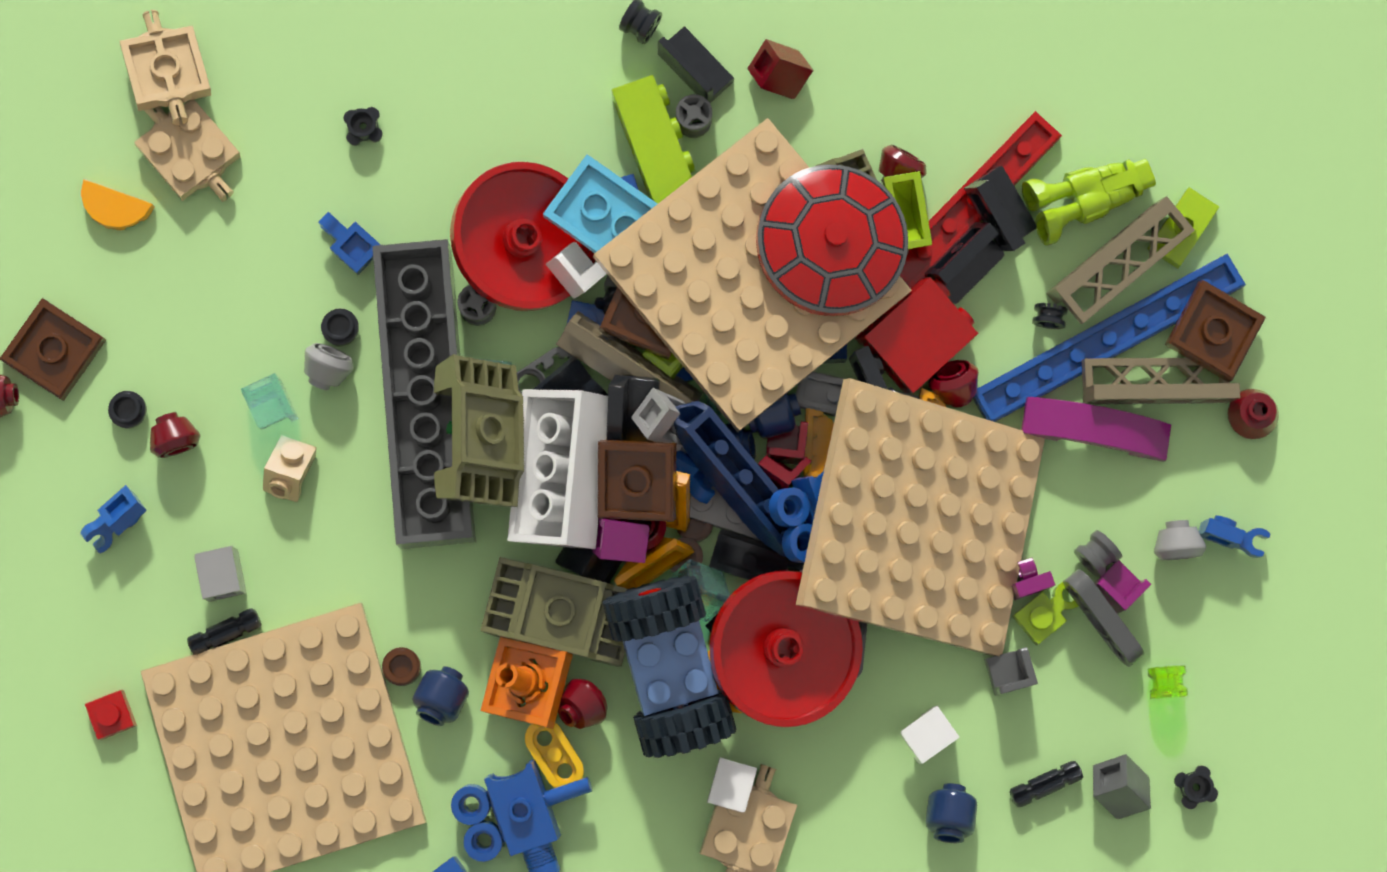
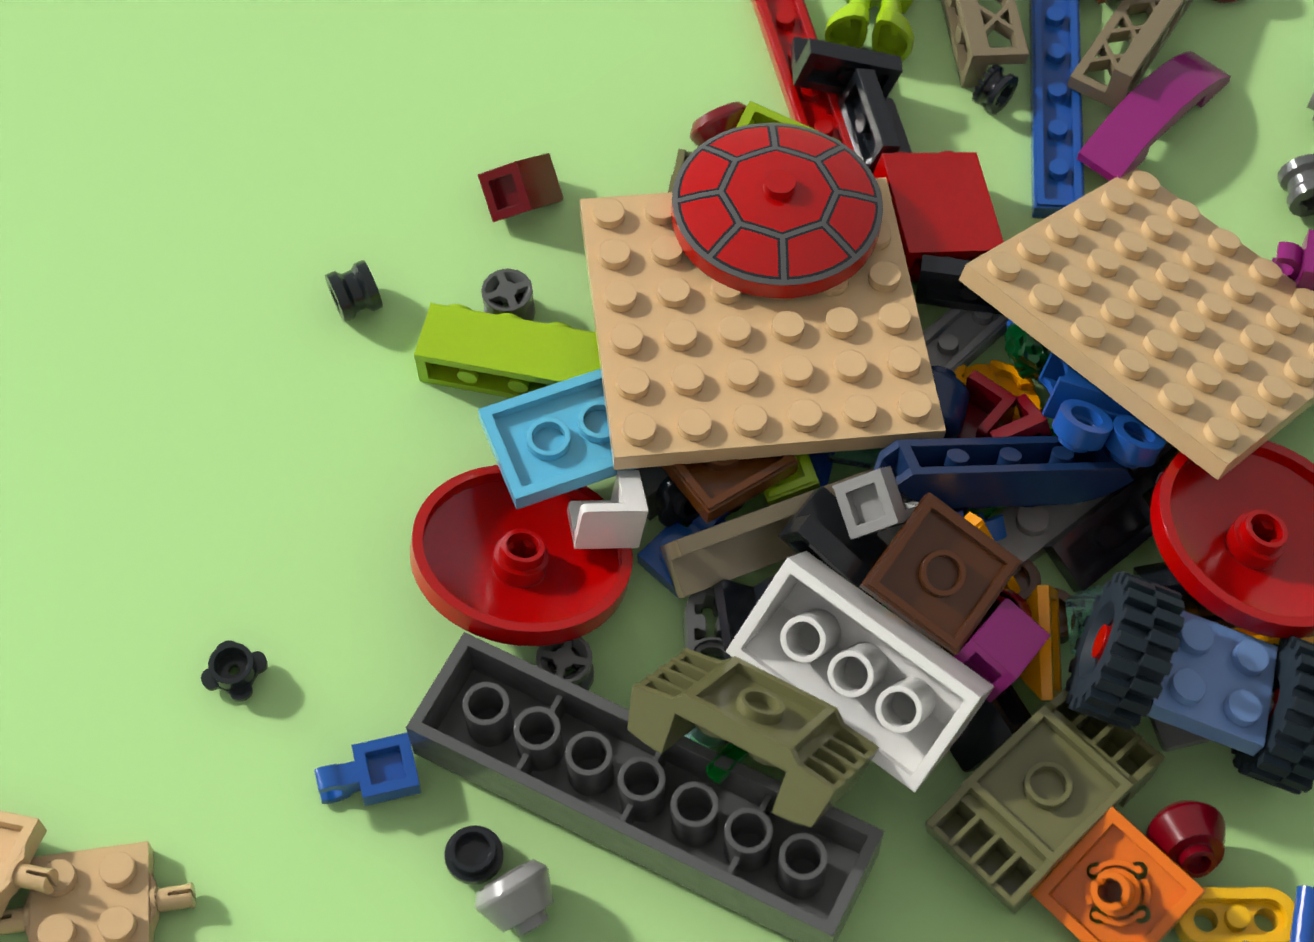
camera: 50 degrees left, 20 degrees down
(694, 64) = (445, 270): black panel -> none
(955, 383) = (1018, 205): dark red cone -> none

